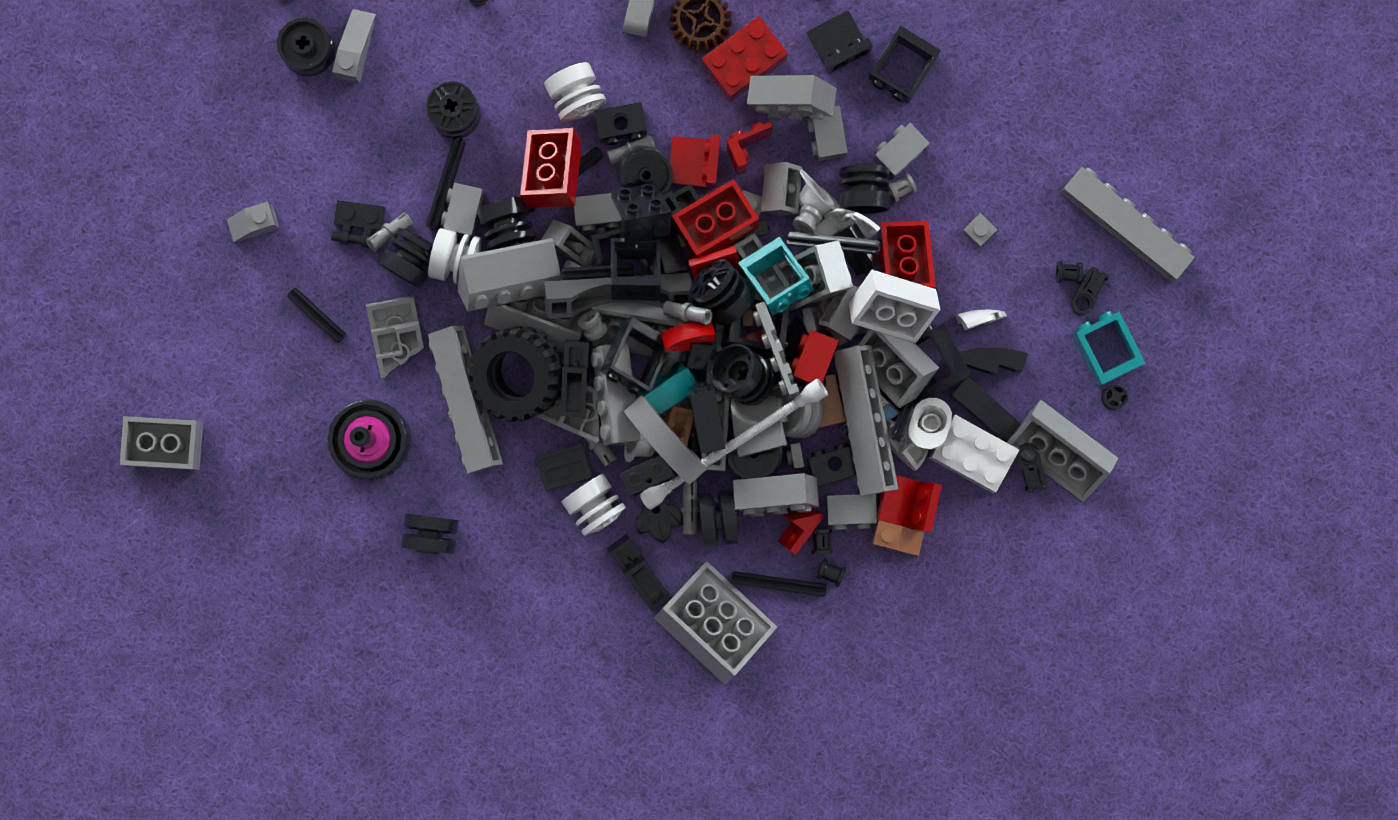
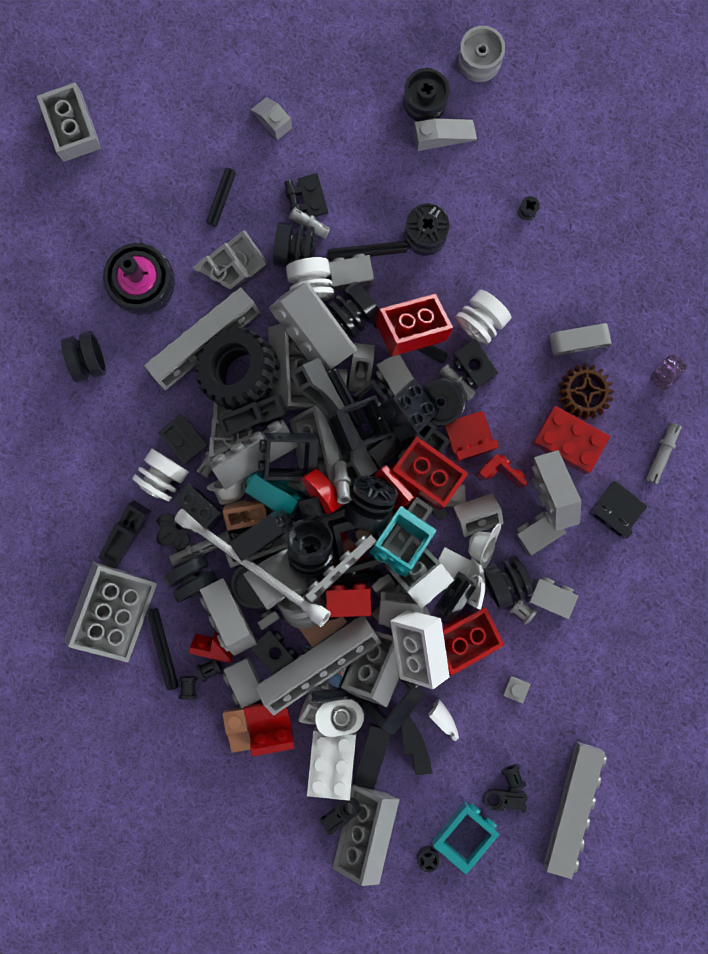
camera: 70 degrees right, 0 degrees up
(592, 325) = (301, 411): light grey wheel -> none
(664, 440) = (229, 508): light grey slope -> none
(807, 220) = (461, 546): light grey wheel -> none
(847, 244) = (455, 587): black axle -> none
(915, 44) = (644, 570): black window -> none

